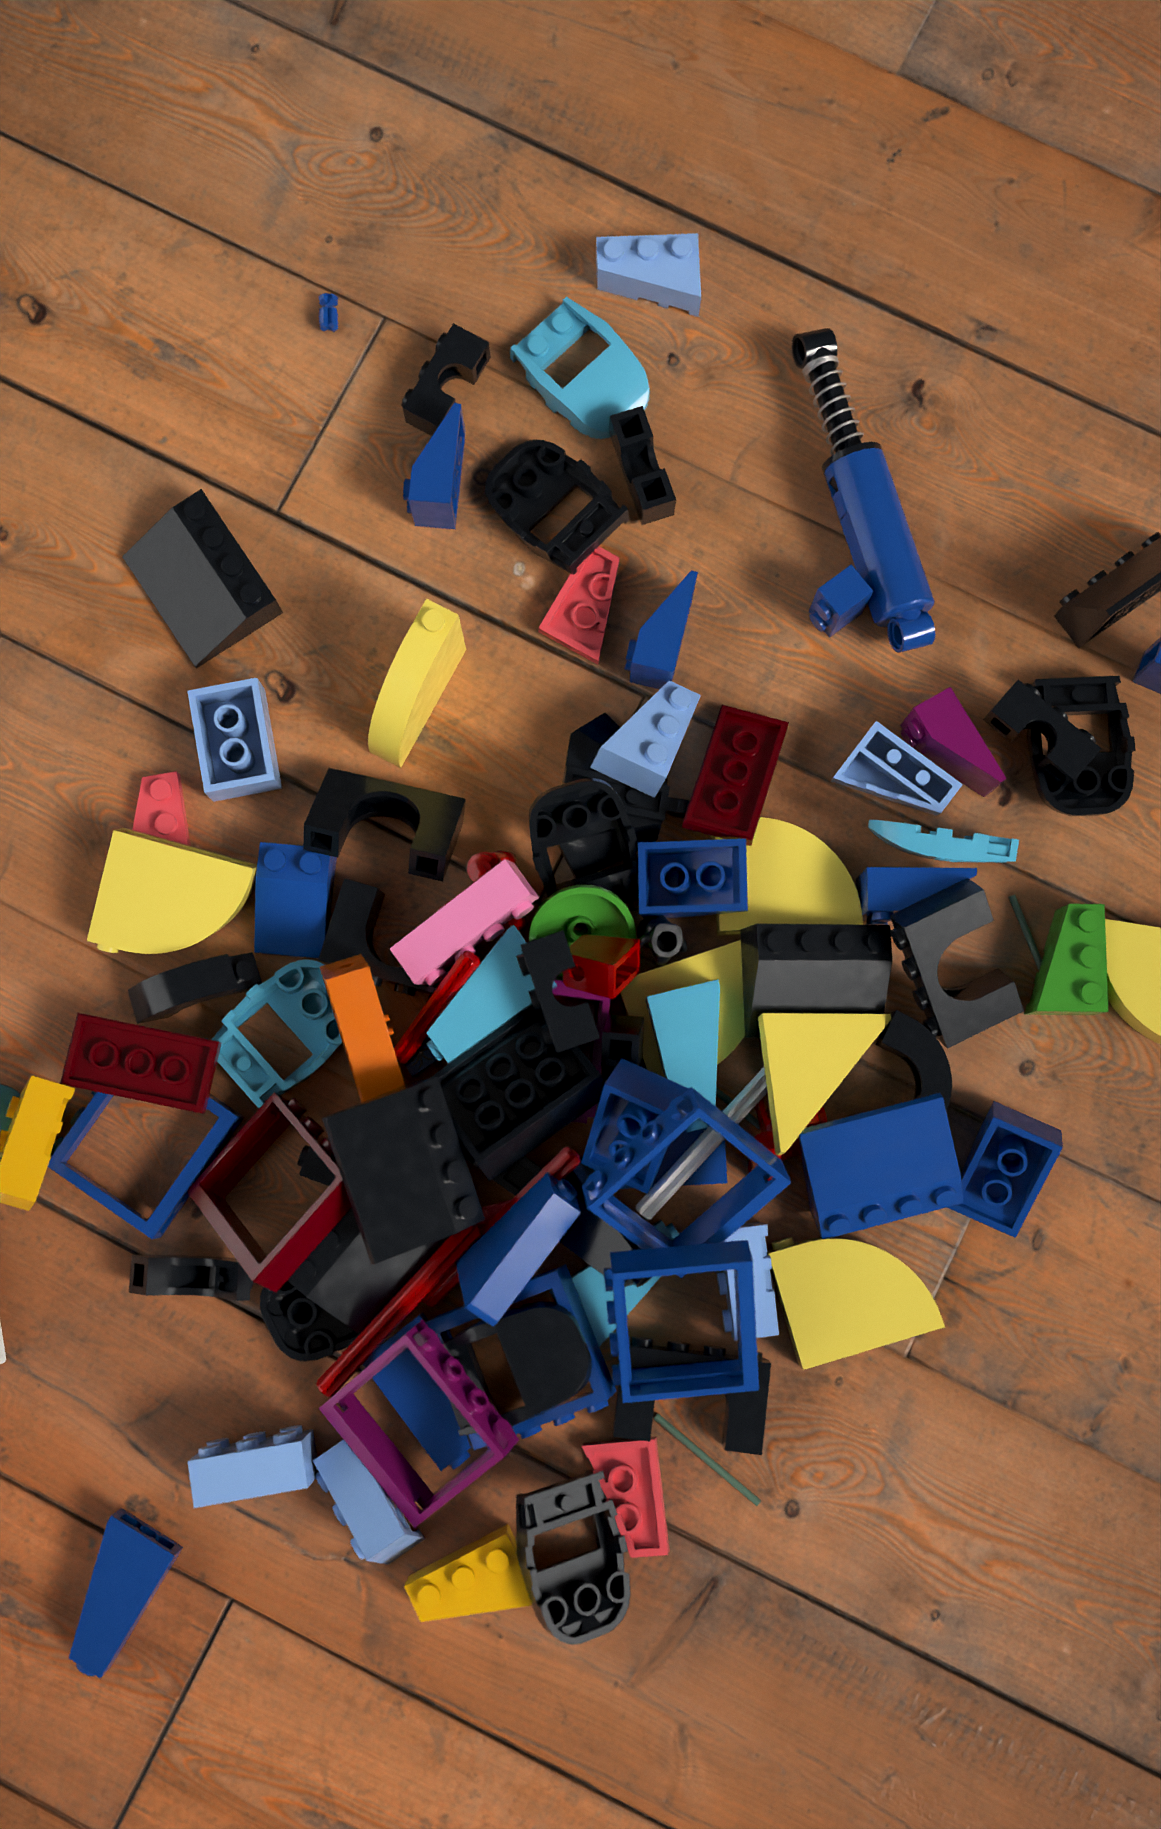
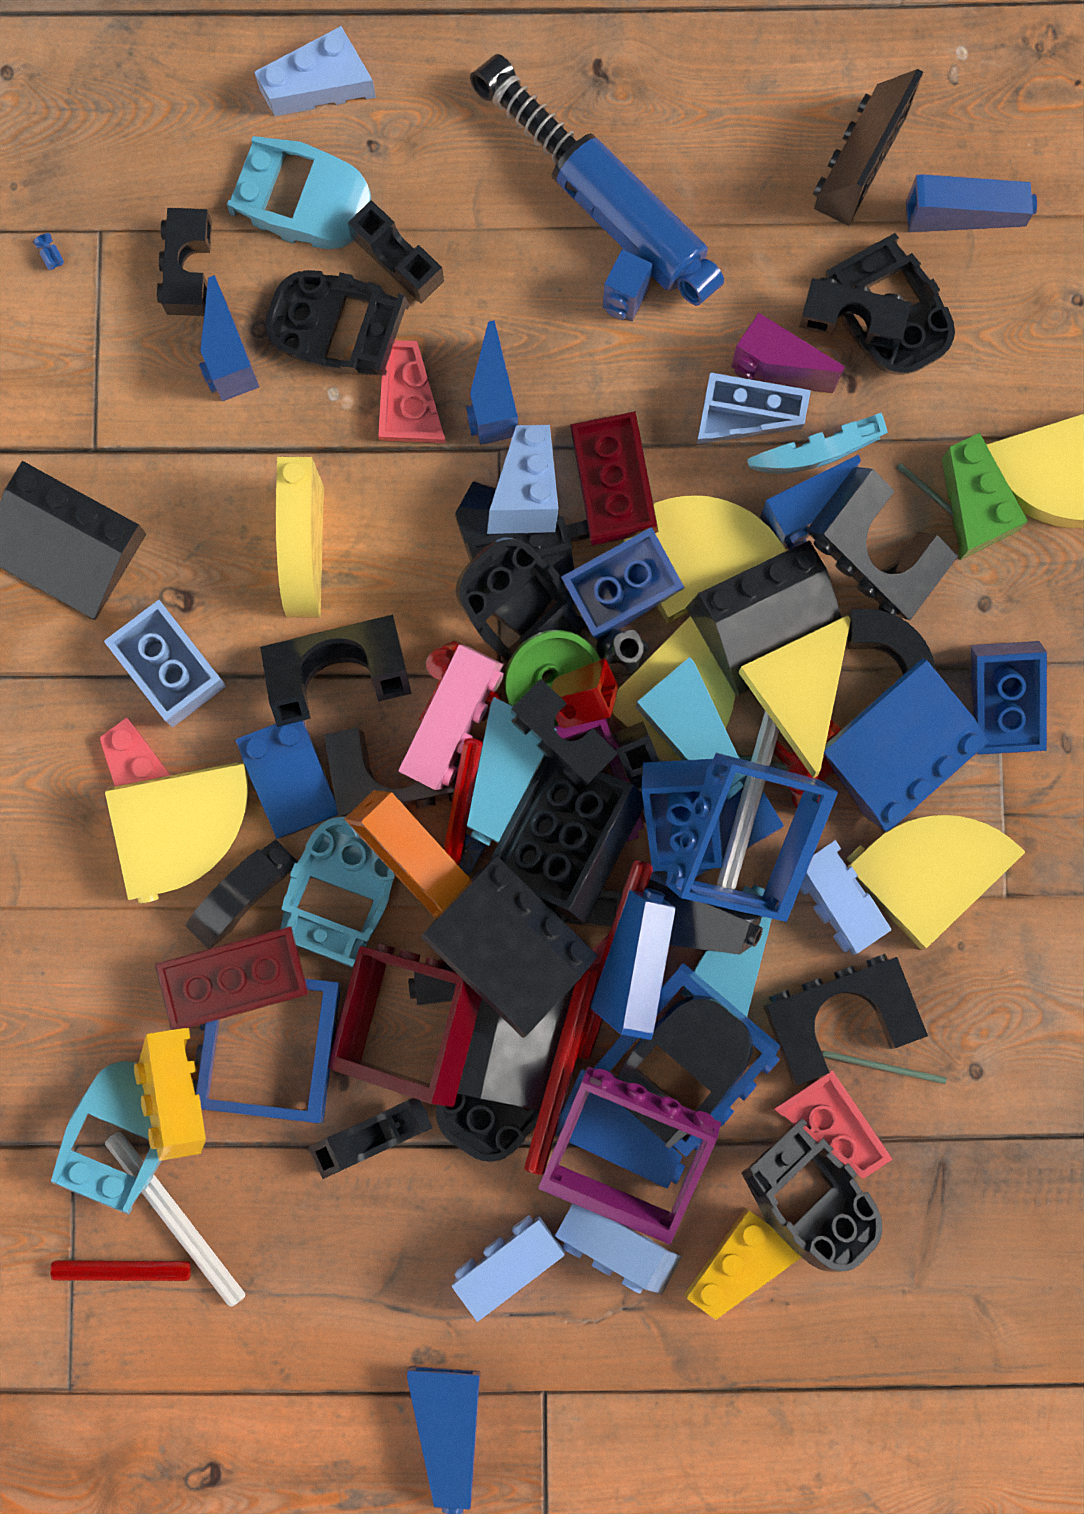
camera: 25 degrees left, 0 degrees up
(685, 1379) = (838, 1001): blue window -> none

